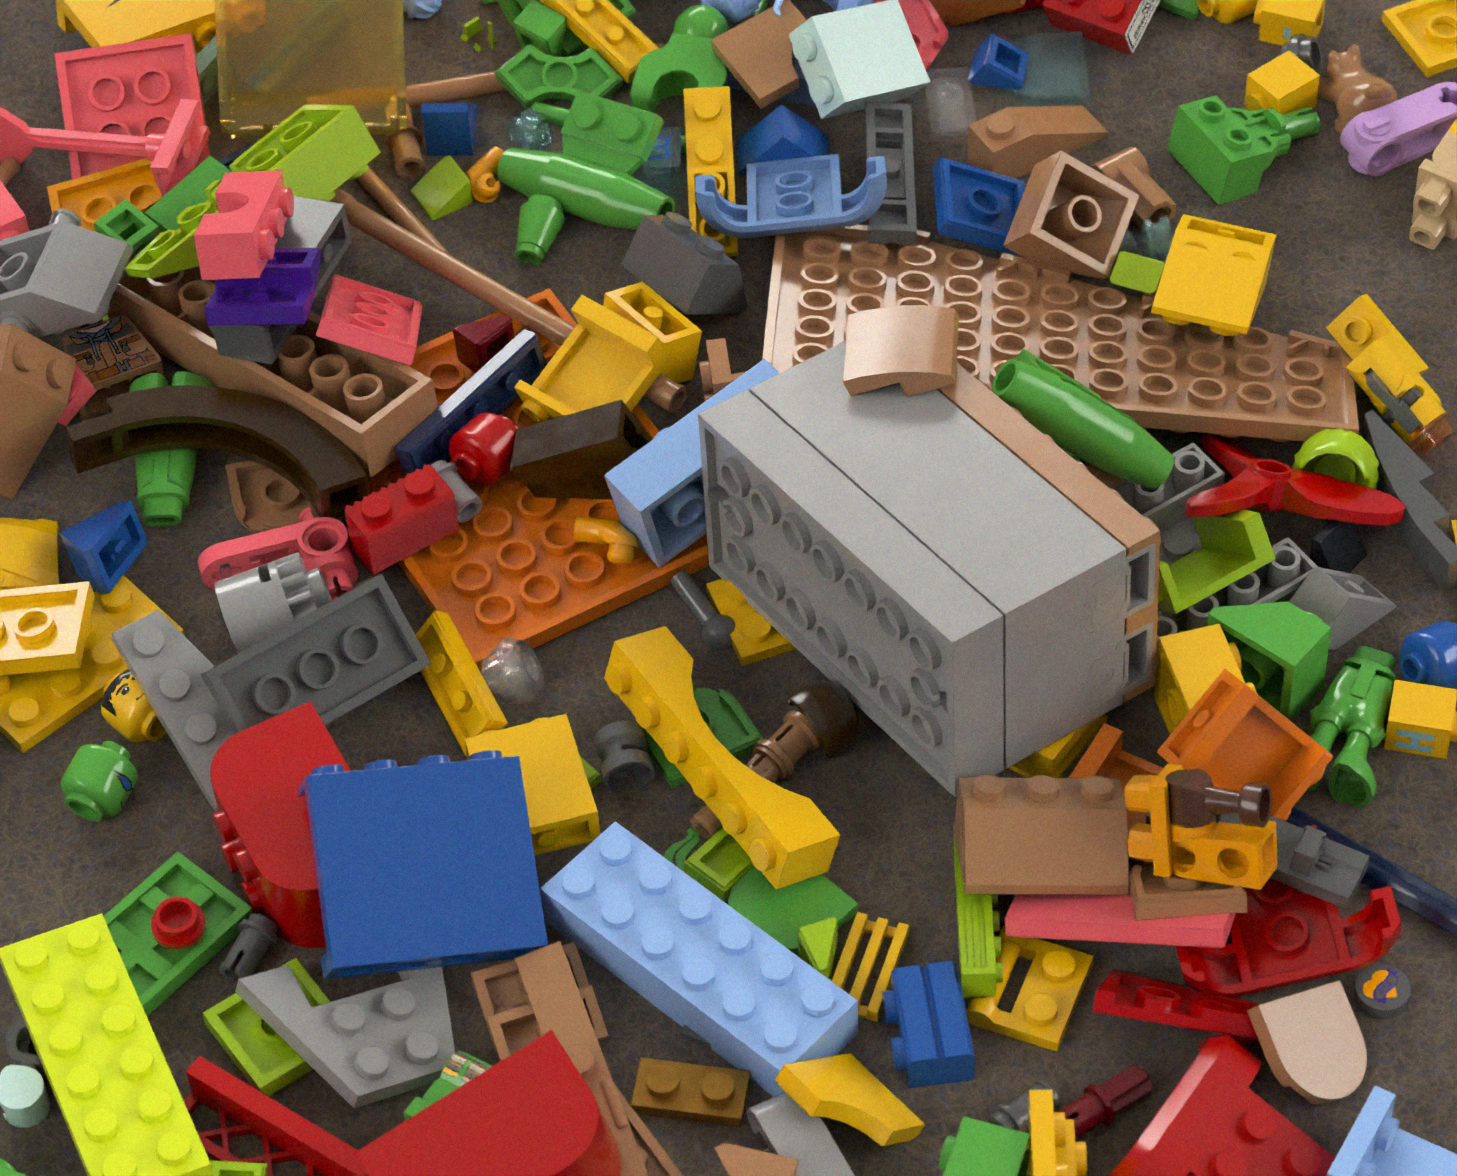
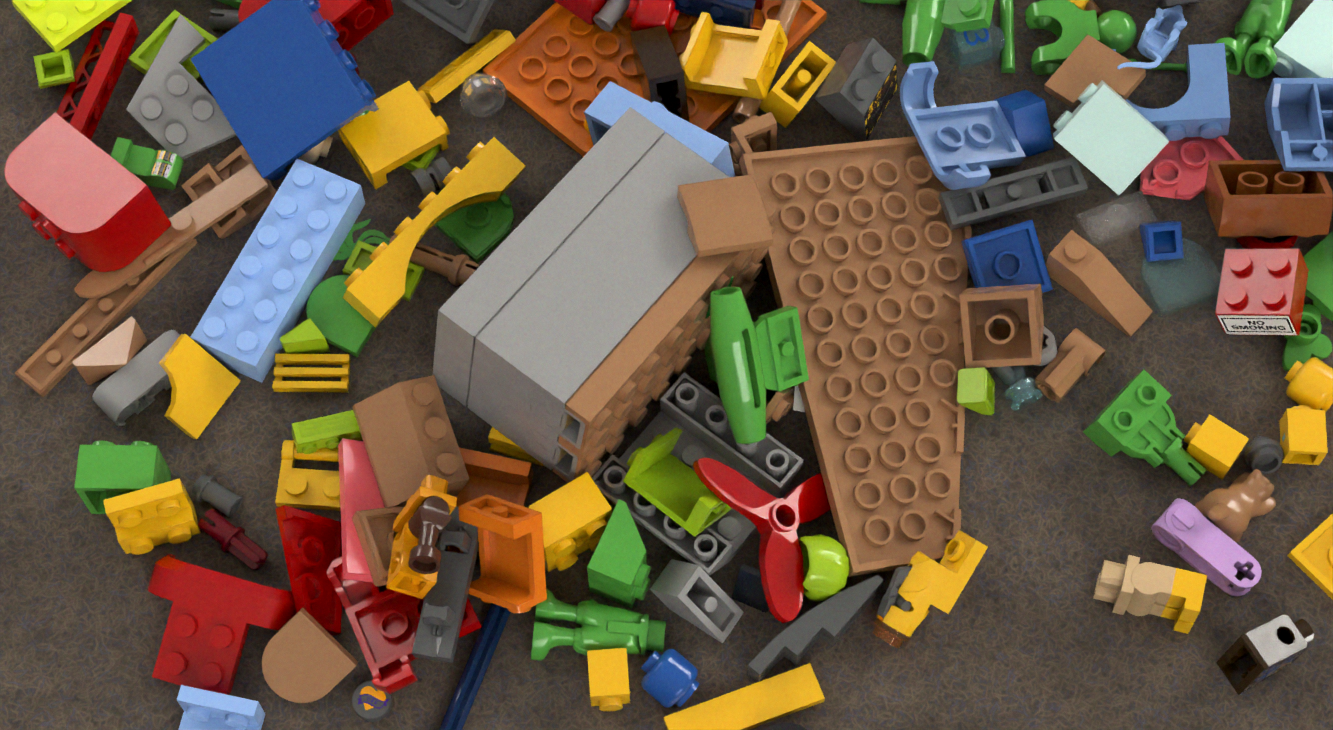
camera: 70 degrees right, 15 degrees up
(691, 1092) = (188, 294): pearl gold plate -> none
(709, 153) = (986, 74): yellow slope -> none
(930, 1023) = (264, 421): blue brick -> none
(1214, 275) = (977, 437): yellow slope -> none

